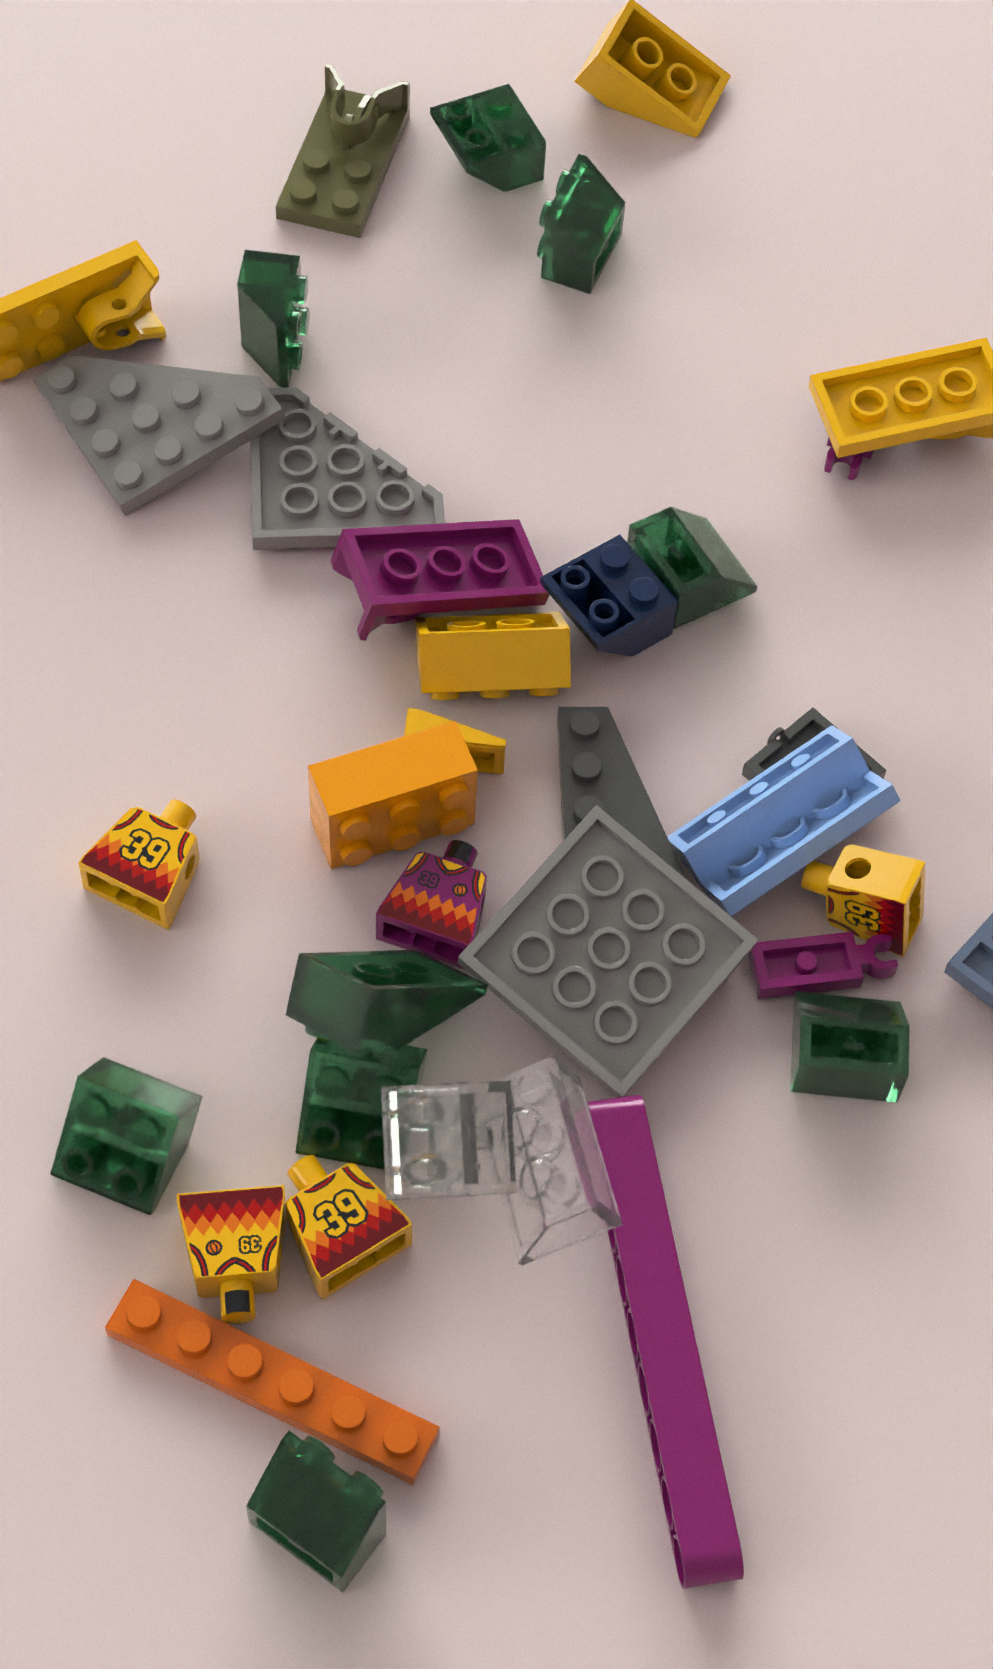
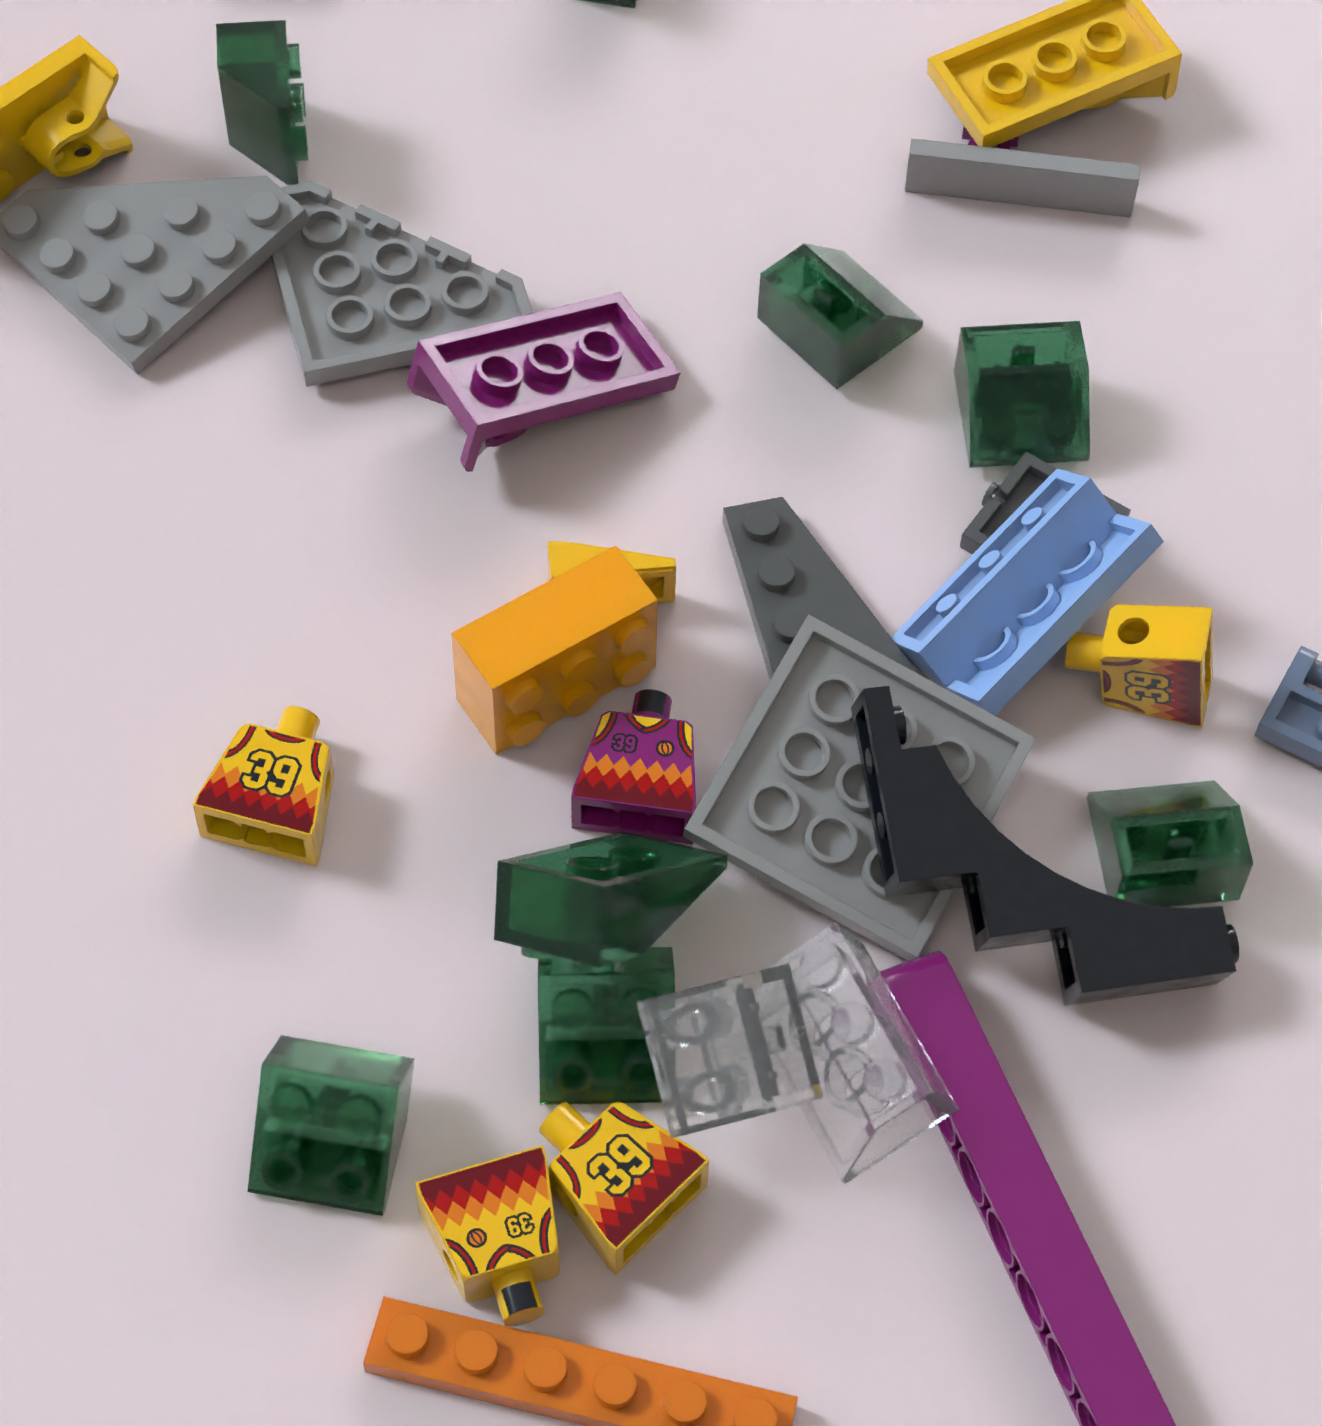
camera: 10 degrees left, 0 degrees up
(493, 654) = (630, 459): yellow slope -> none
(613, 598) = (760, 365): dark blue slope -> none
(659, 1008) = (939, 840): none -> black arch
(817, 963) = (1106, 754): magenta plate -> none
(822, 659) = (1023, 393): none -> clear green slope
(866, 485) = (1022, 177): none -> light grey tile

